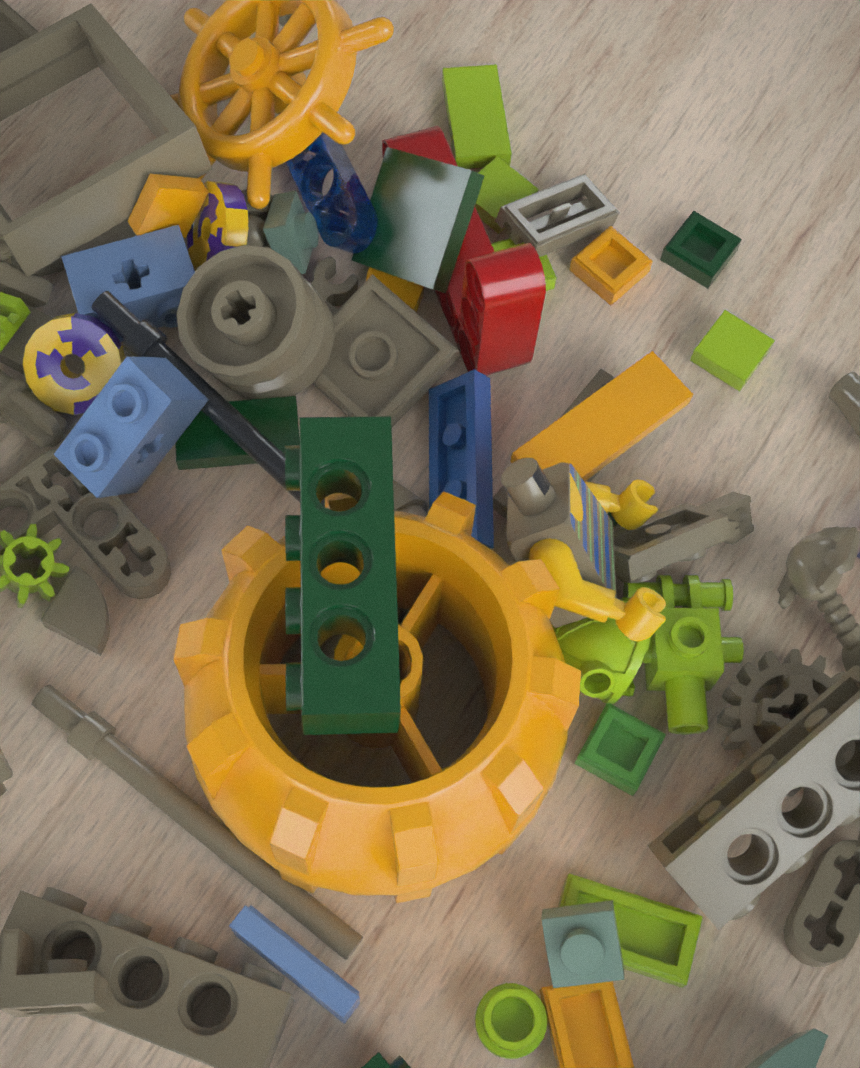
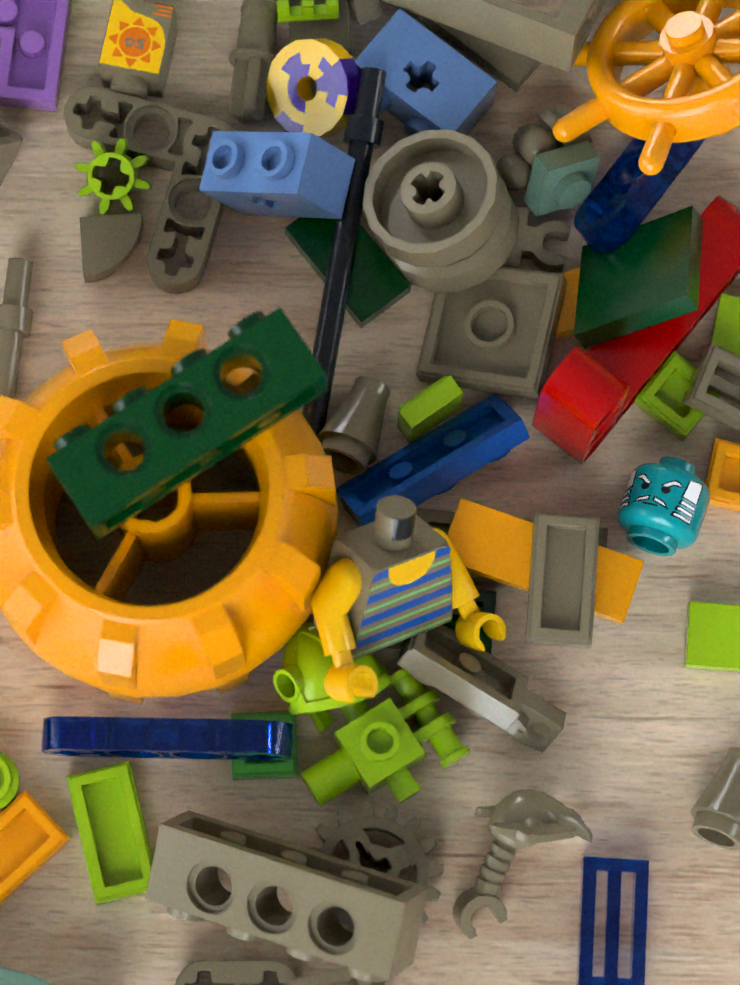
camera: 60 degrees right, 10 degrees up
(167, 203) = (507, 60): light orange tile -> none
(219, 224) = (520, 115): yellow piece -> none
(412, 440) = (429, 408): none -> lime tile
(572, 825) = (167, 738): none -> clear blue beam
(582, 944) = (73, 800): sand green plate -> none
(608, 319) = (663, 506): none -> teal head
(634, 414) = (562, 580): none -> dark tan tile

